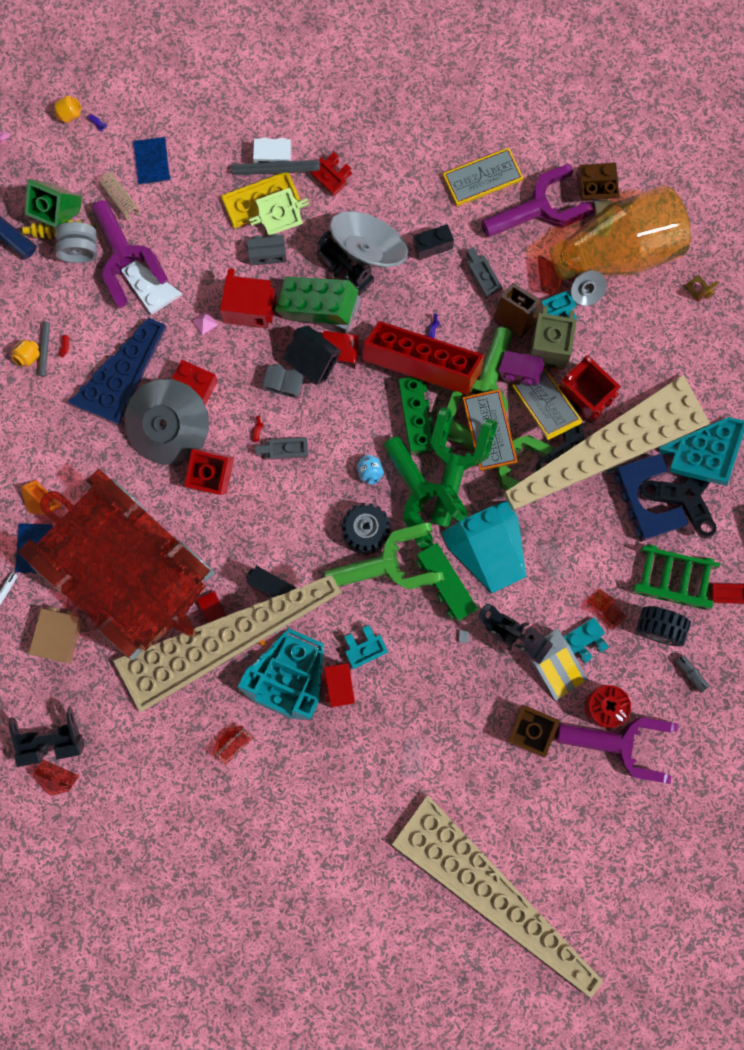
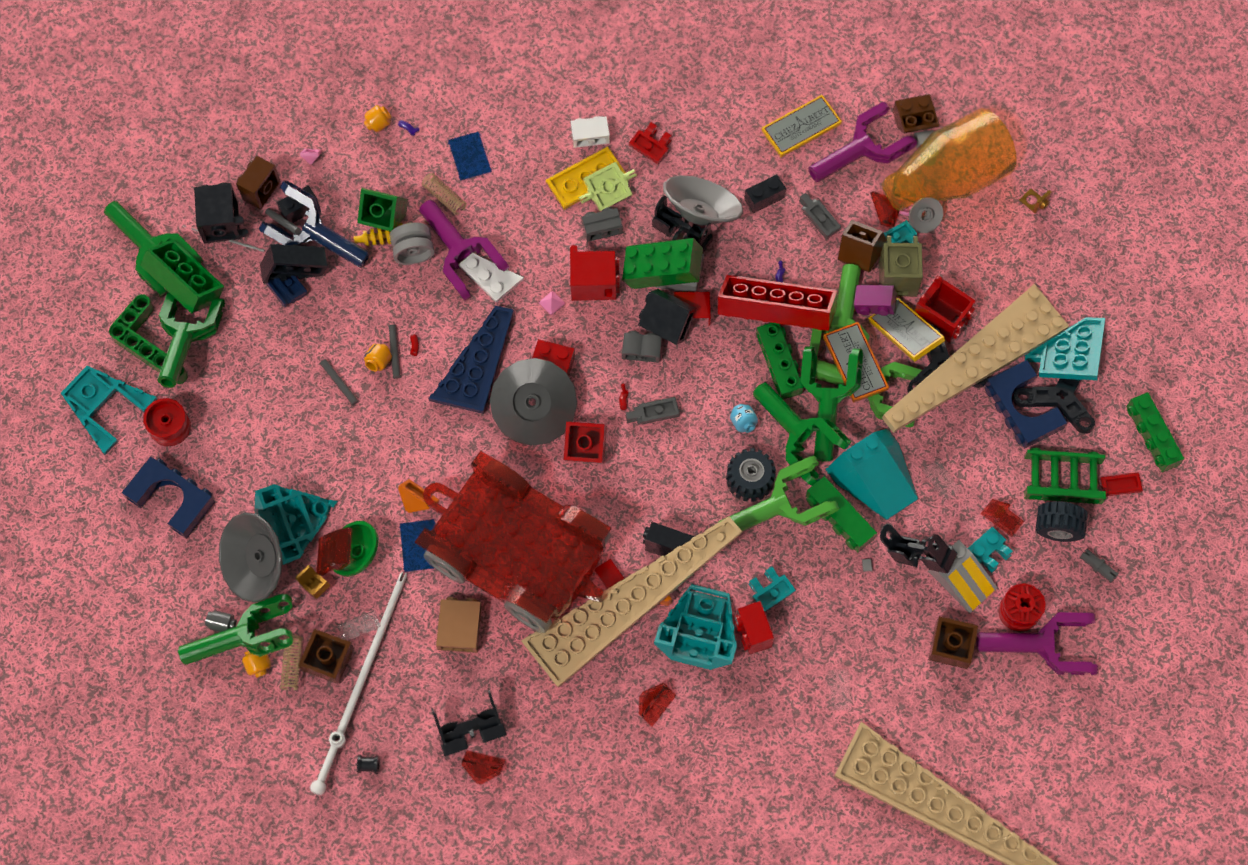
camera: 10 degrees left, 10 degrees down
(275, 167) = (595, 145): dark grey axle -> none

